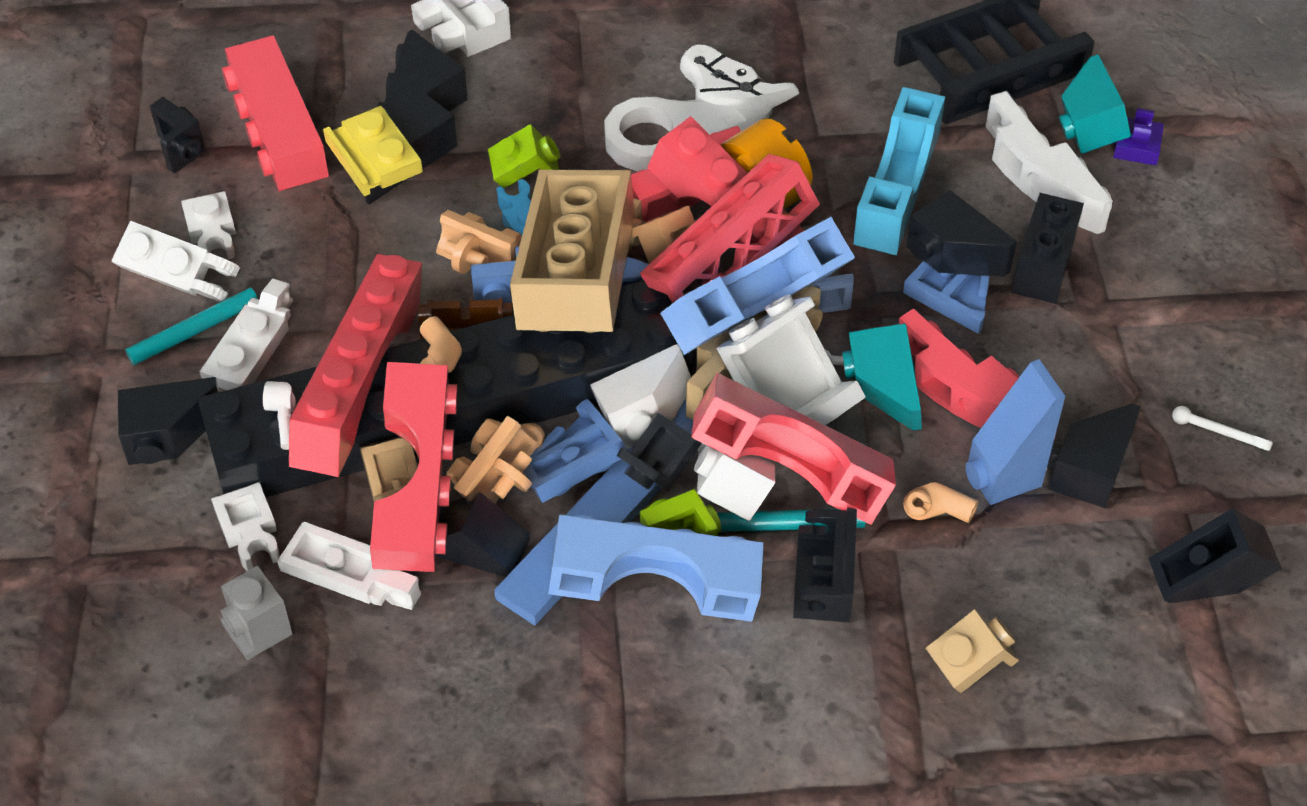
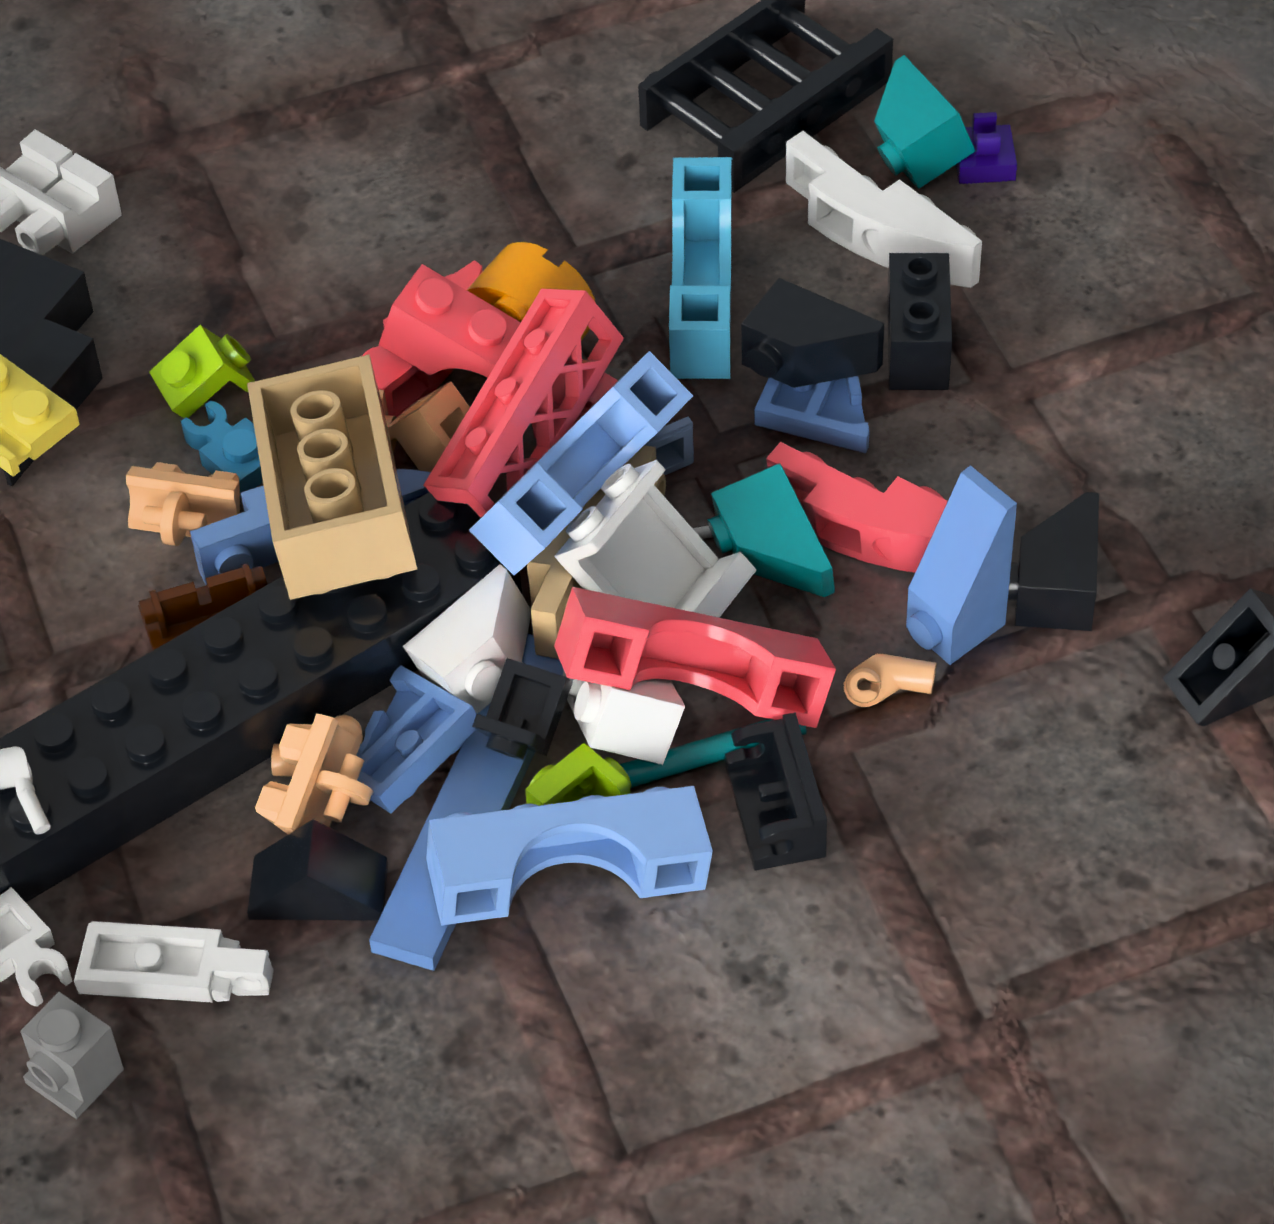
camera: 15 degrees left, 0 degrees up
(334, 399) = (89, 701): coral arch -> none
(388, 466) = (185, 829): tan bracket -> none
(407, 523) = (236, 885): coral arch -> none
(443, 347) = (203, 648): light nougat arm -> none
(725, 98) = (439, 225): white animal -> none
(972, 649) = (989, 847): tan bracket -> none
(1183, 415) = (1148, 490): white hinge -> none

